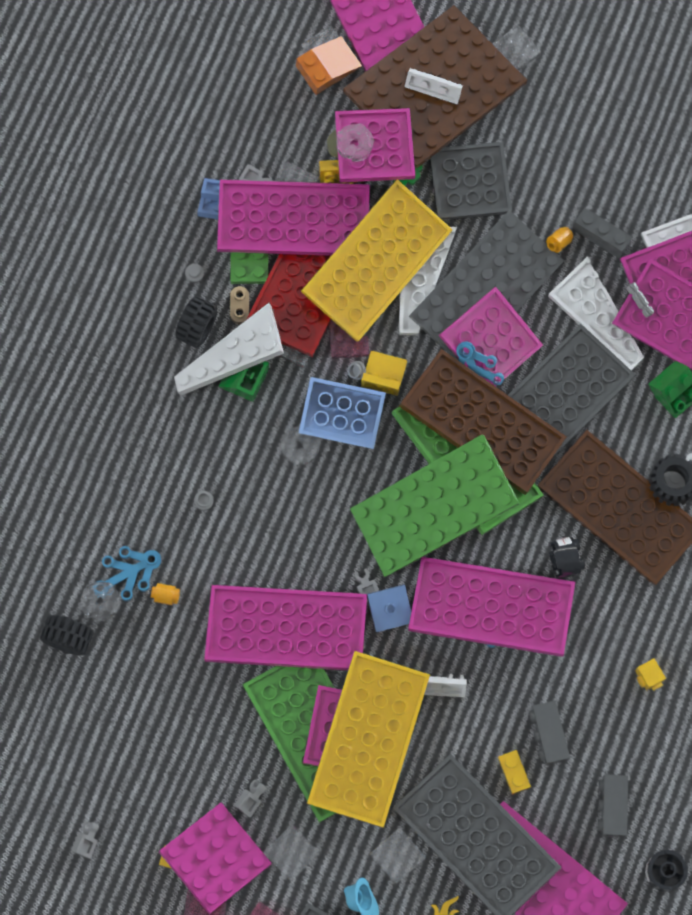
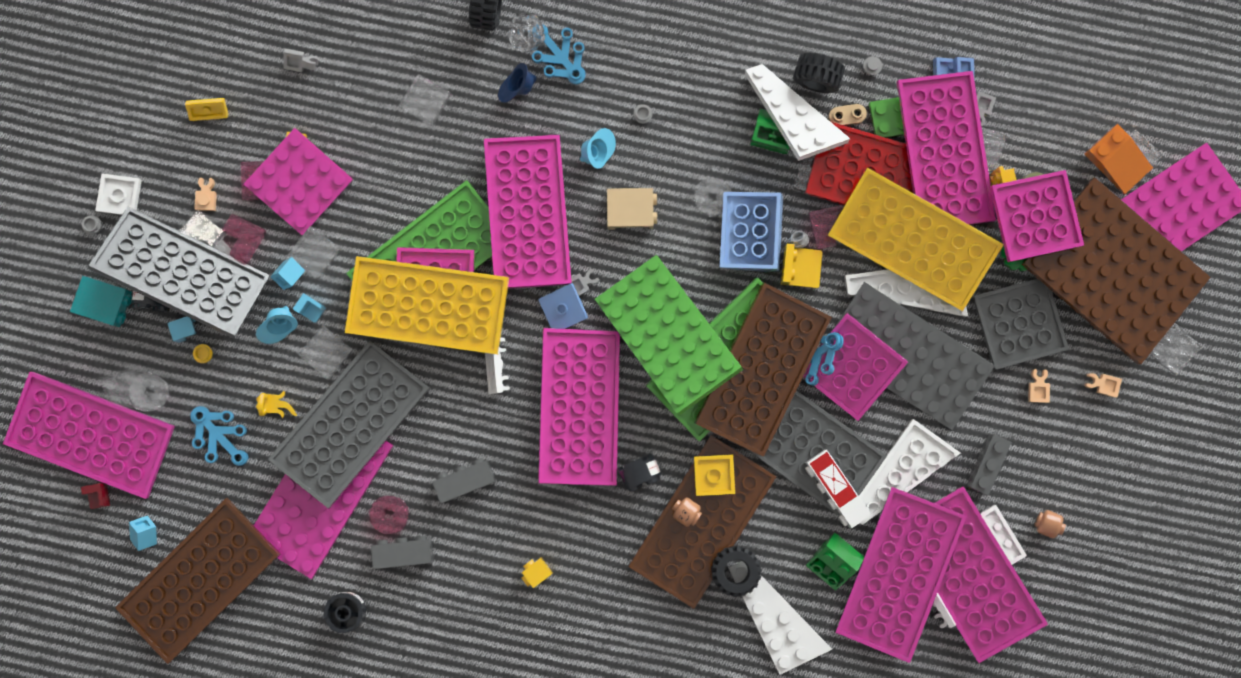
camera: 85 degrees right, 10 degrees up
(151, 620) = (517, 83): none -> dark blue piece
(151, 716) = (424, 100): none -> clear plate
(165, 594) = (543, 93): light orange brick -> none
(233, 549) = (598, 148): none -> medium azure piece
(249, 800) = (357, 205): light grey plate -> none
(299, 526) = (631, 208): none -> tan panel
(309, 883) = (287, 273): none -> medium azure panel
(349, 866) = (309, 308): none -> medium azure panel
(359, 133) = (1045, 194): clear plate -> none
(433, 86) = (1114, 266): white plate -> none
(514, 772) = (422, 452): yellow plate -> none
(538, 175) = (1039, 391): none -> light nougat plate
(541, 115) = (1106, 384): none -> light nougat plate
(559, 239) = (973, 422): light orange brick -> none
(578, 486) = (714, 475): none -> yellow plate
(578, 805) = (400, 516): none -> clear pink plate
(607, 373) = (837, 488): none -> white brick
(611, 517) = (686, 512): none -> nougat head
(640, 300) = (920, 511): light grey axle -> none
(665, 188) = (1050, 524): none -> nougat head

